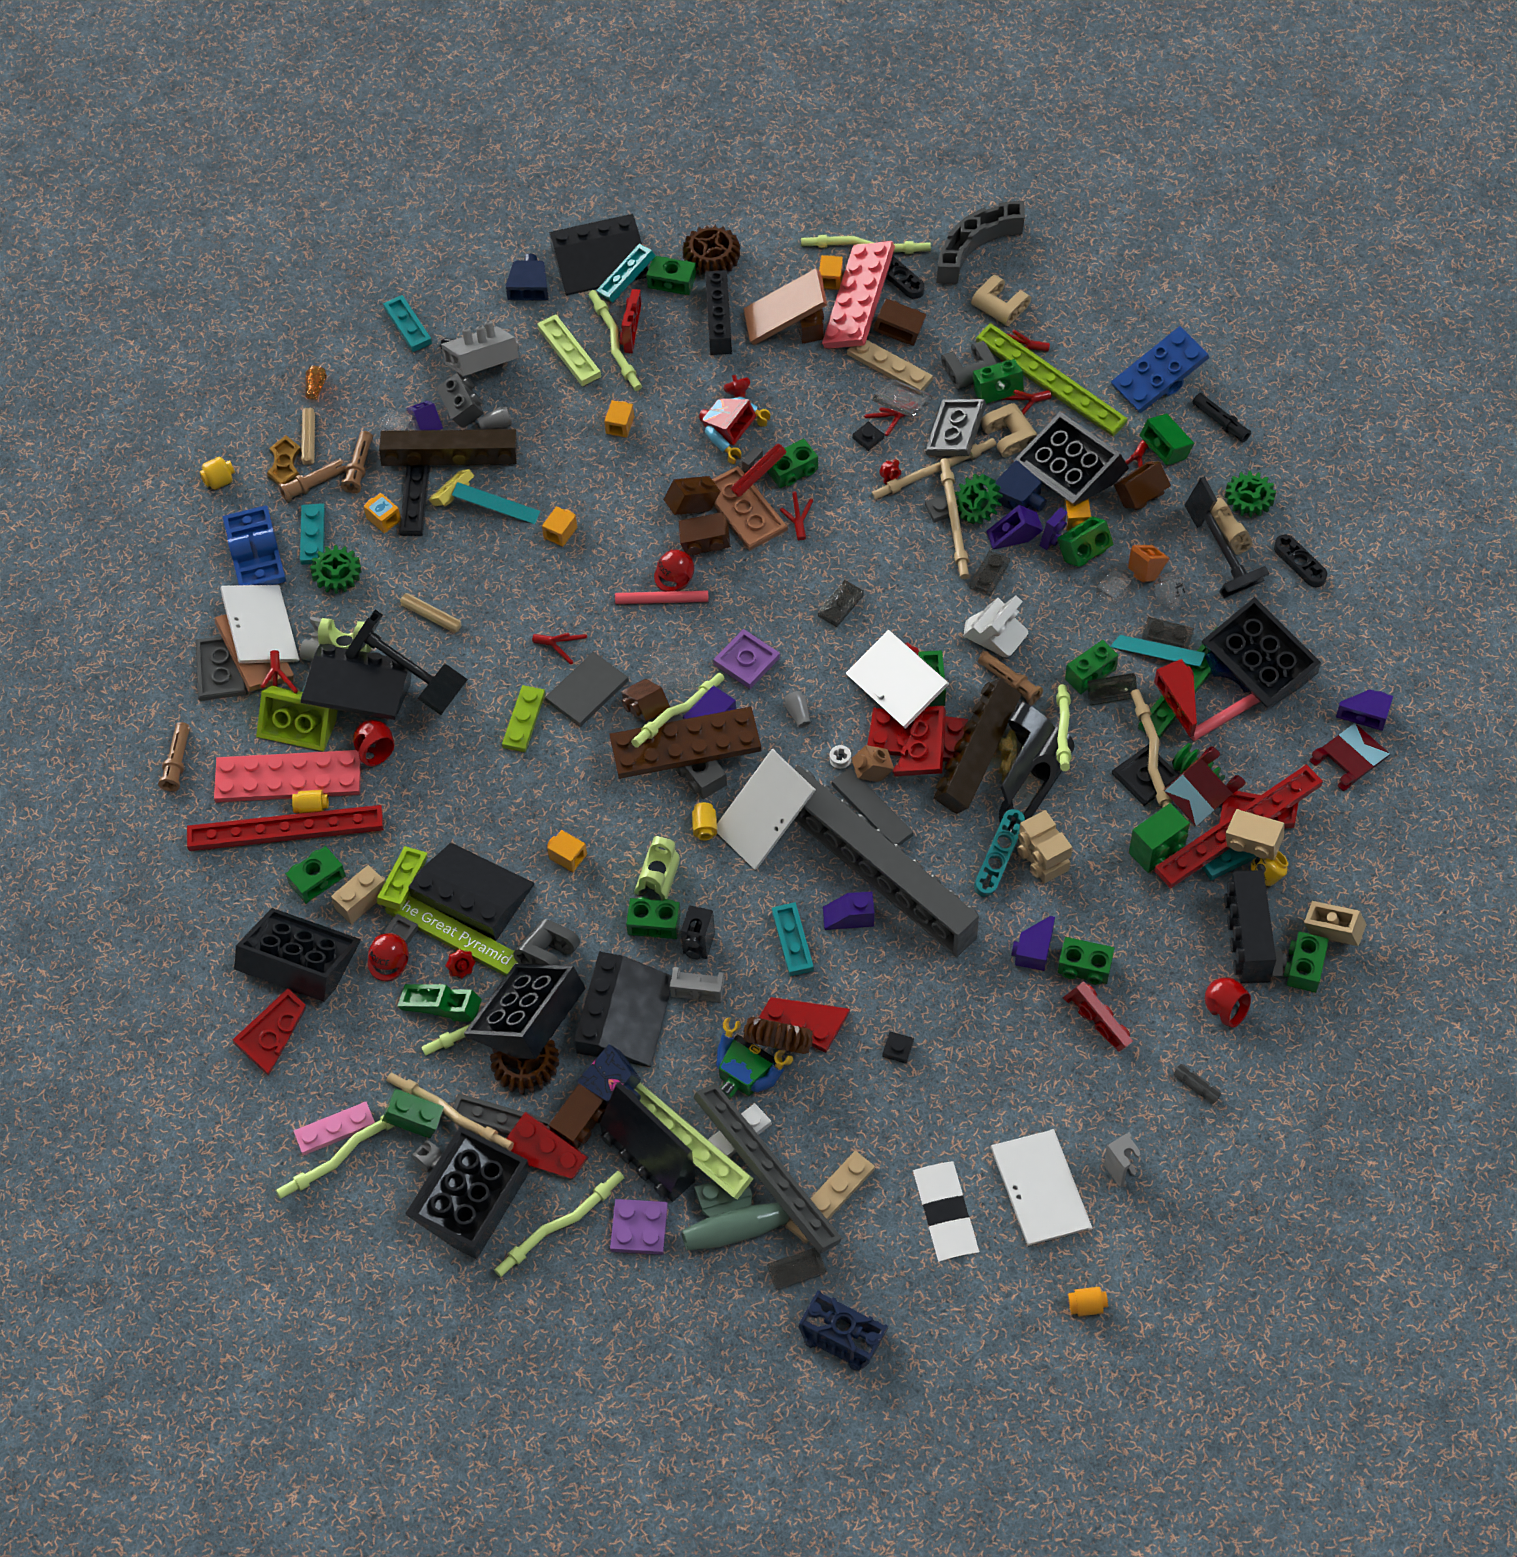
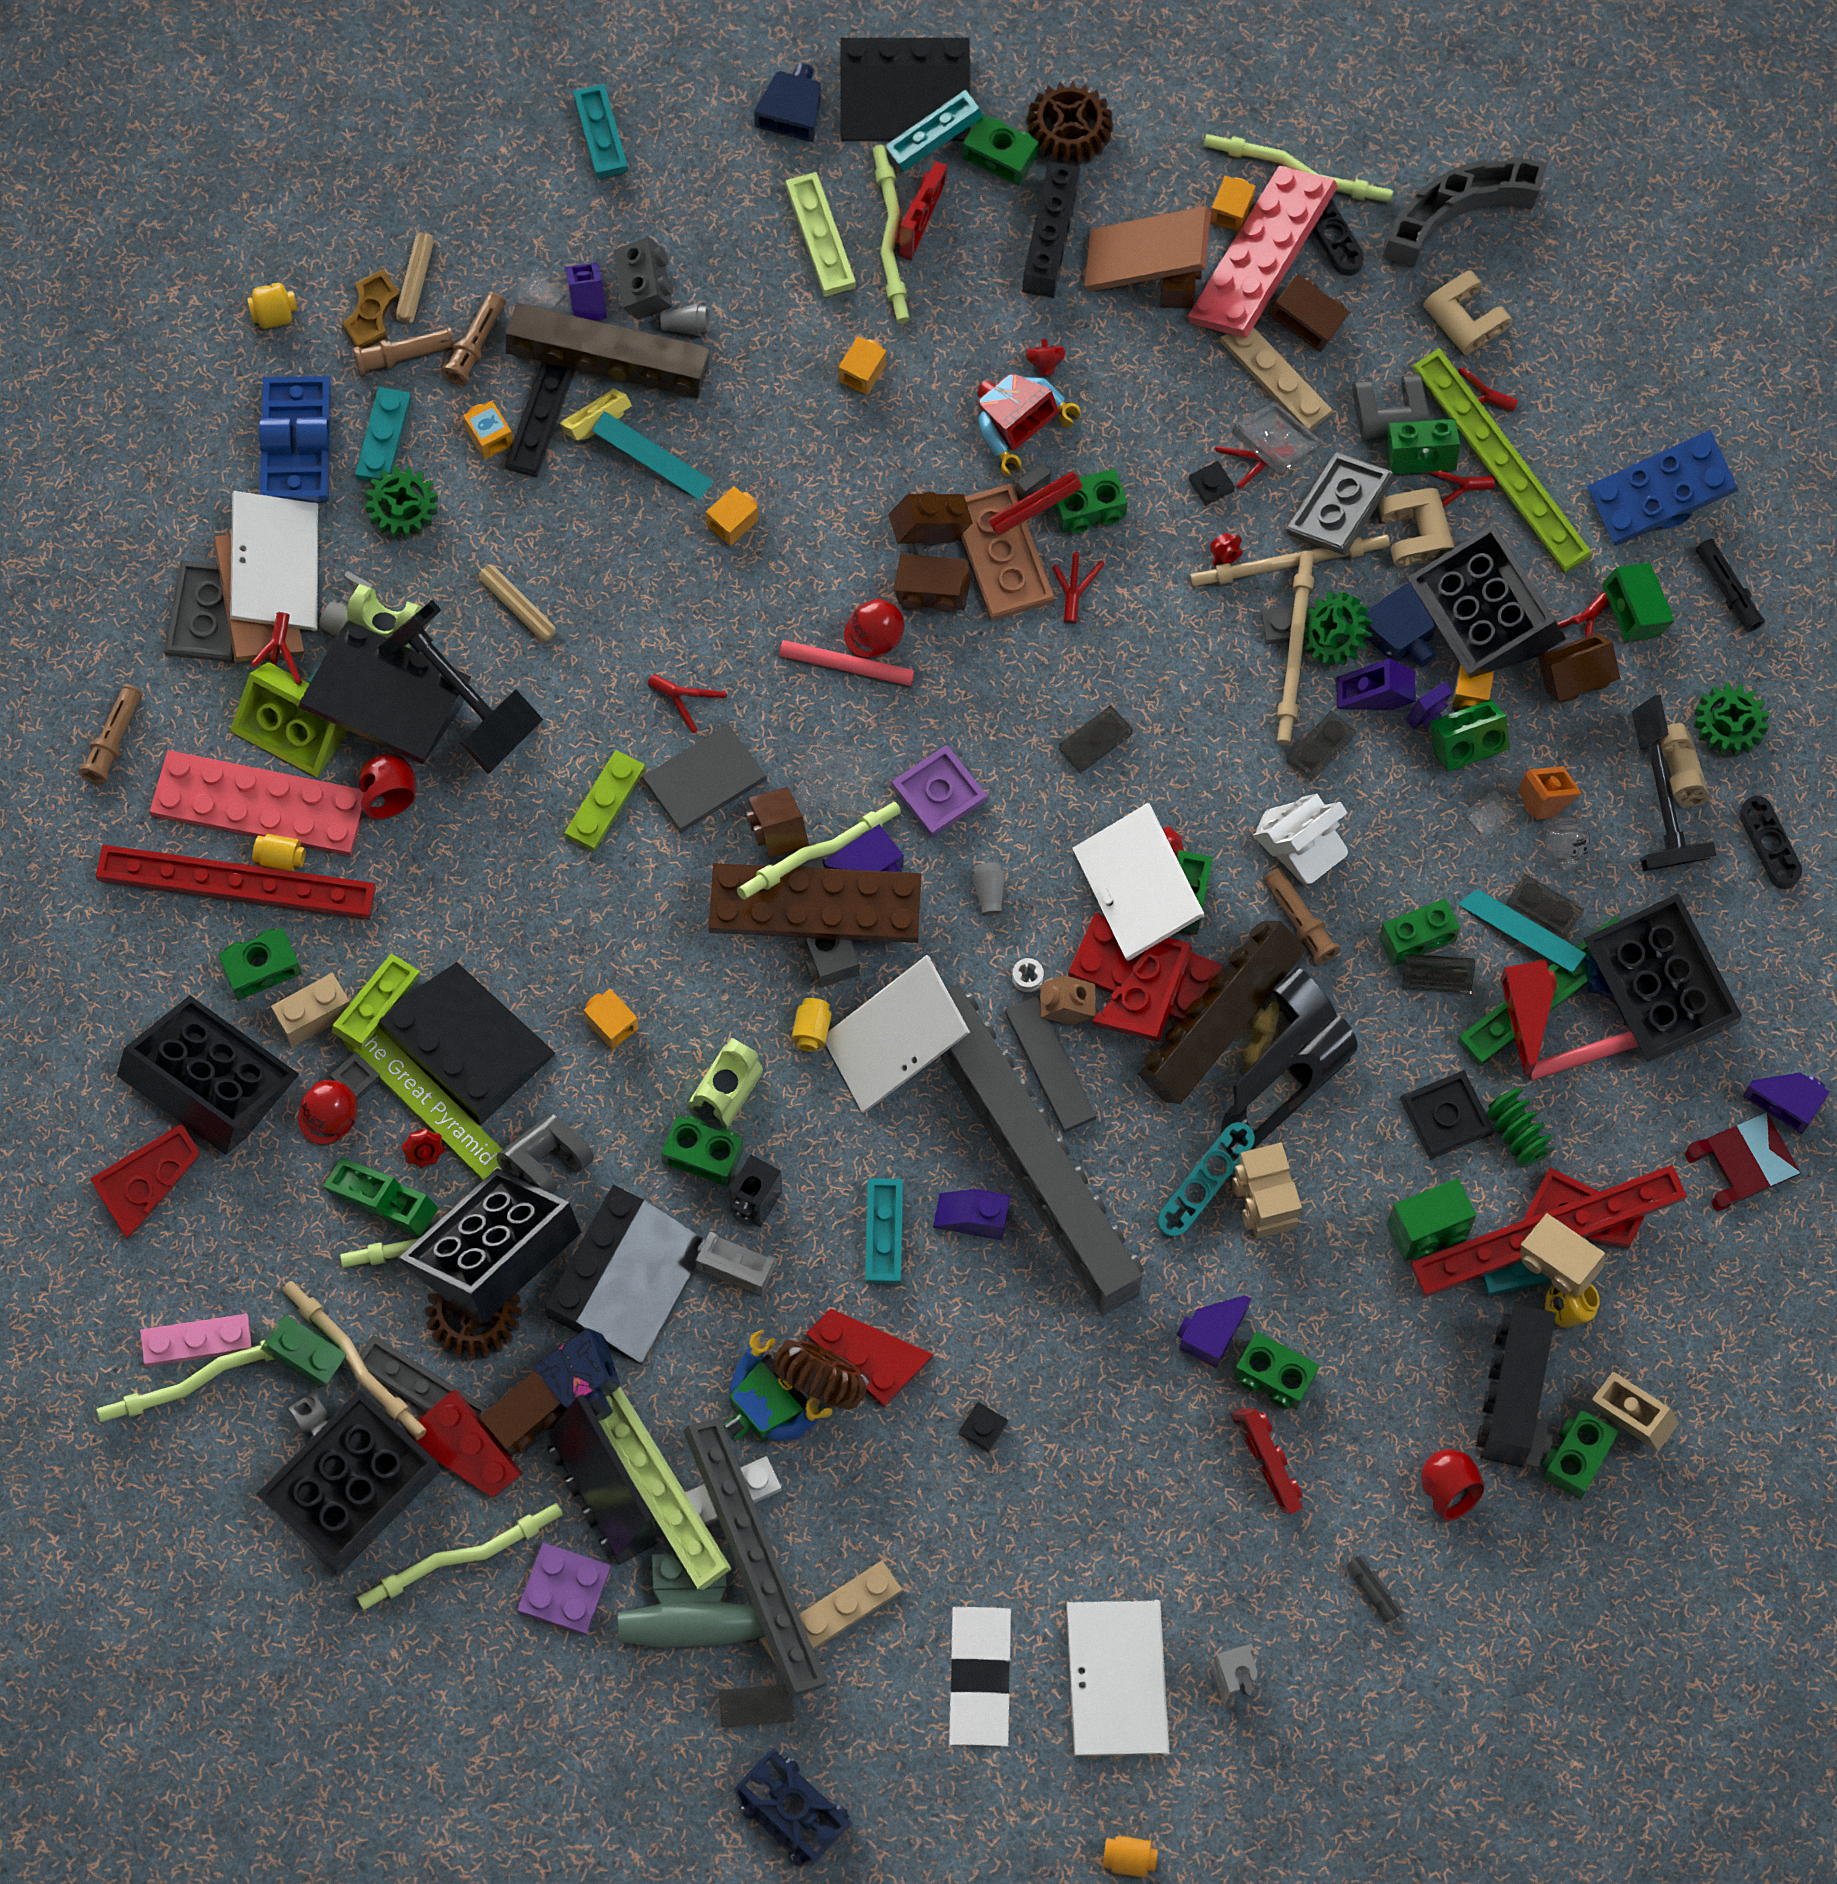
camera: 10 degrees right, 10 degrees up
(314, 381) = (444, 193): clear orange cone -> none
(479, 350) = (689, 206): light grey piece -> none
(1063, 753) = (1332, 1064): yellowish green bar -> none
(1143, 713) = (1468, 1023): tan bar -> none
(1200, 790) = (1511, 1162): dark red flag -> none

